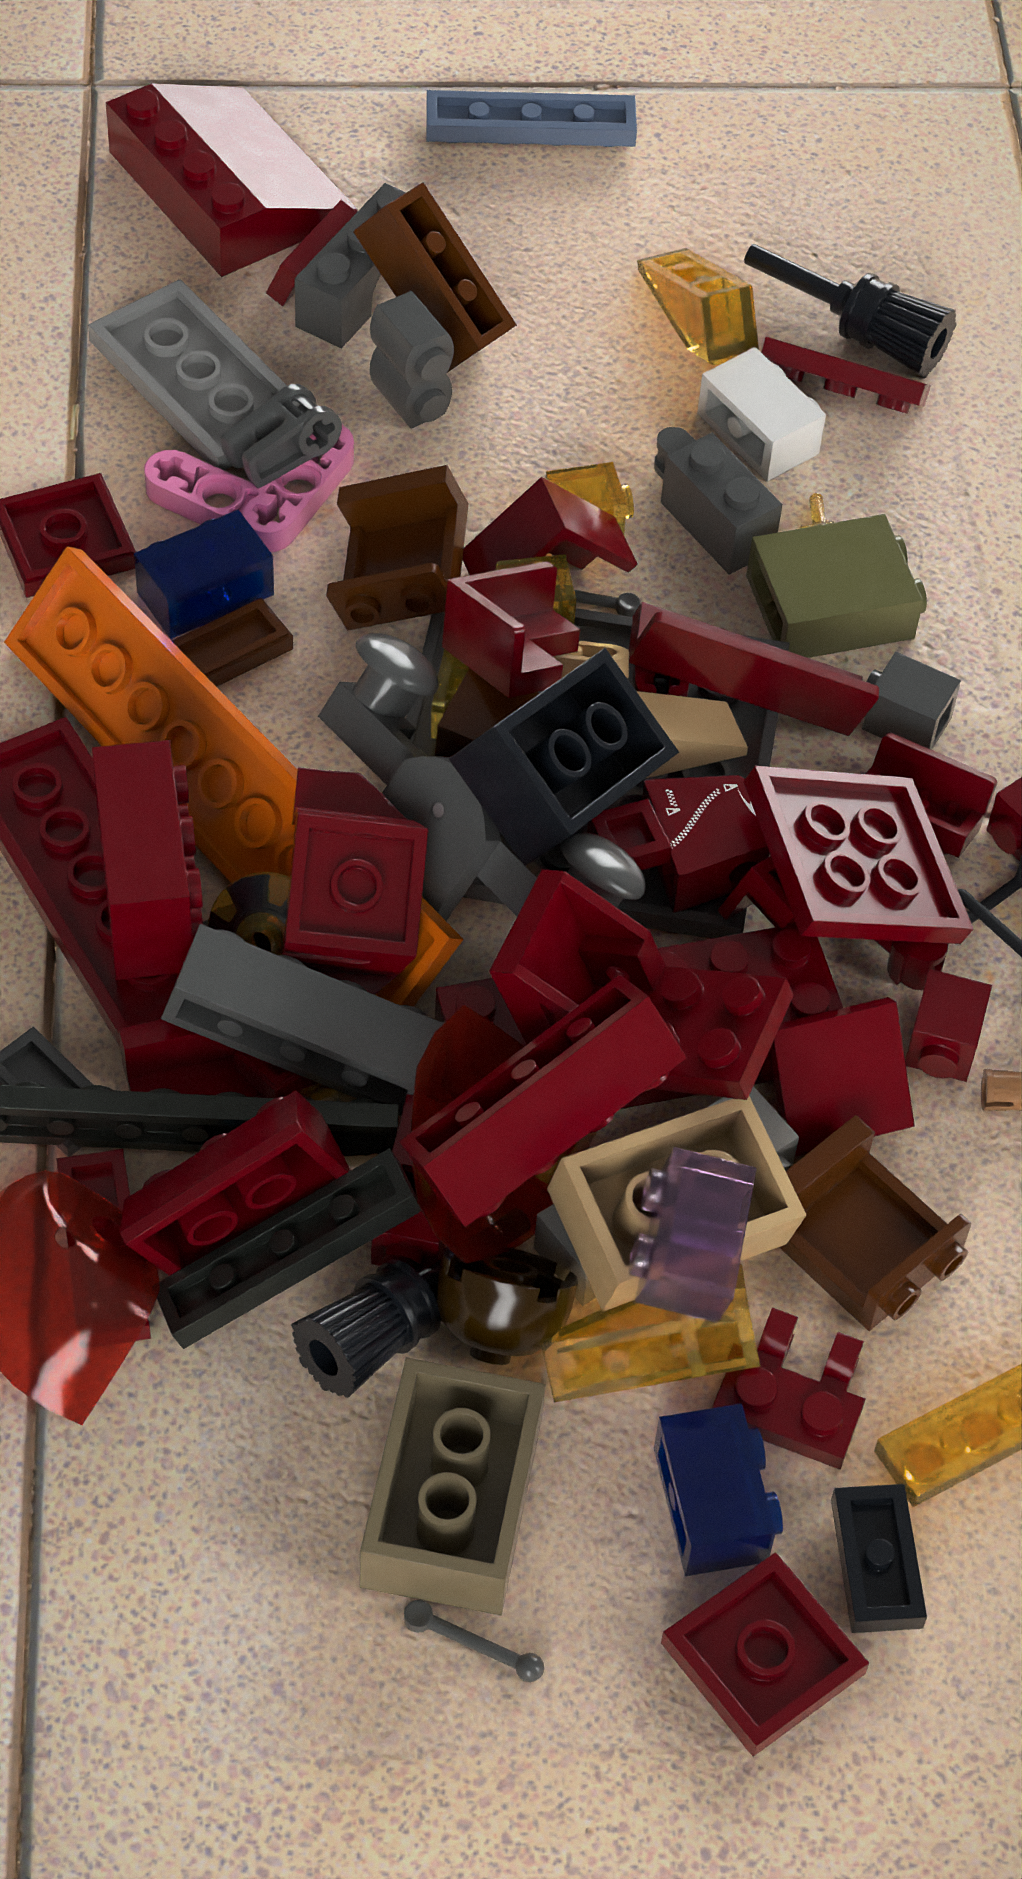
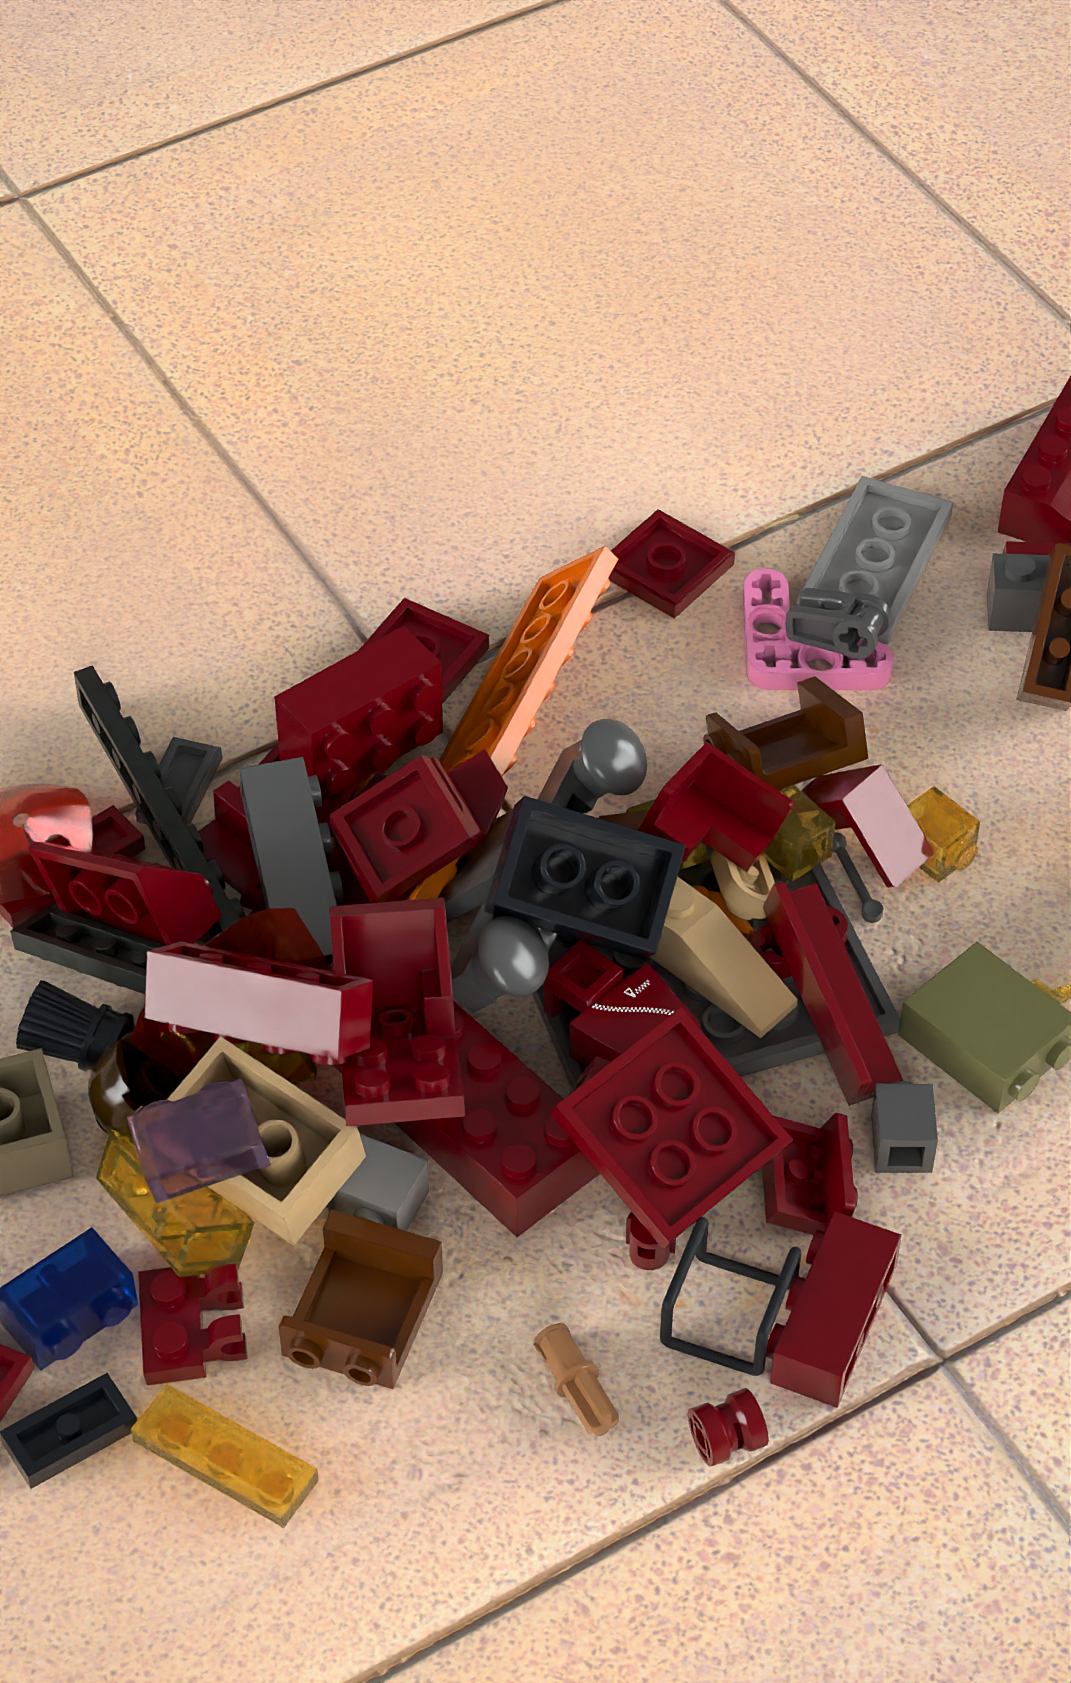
camera: 65 degrees right, 5 degrees down
(204, 573) = (682, 648): clear blue brick -> none
(236, 642) = (634, 697): reddish brown tile -> none
(411, 359) = (977, 657): dark grey brick -> none
(714, 496) = (1016, 902): dark grey brick -> none
(842, 1068) = (480, 1218): dark red tile -> none
(948, 1025) = (588, 1281): dark red brick -> none

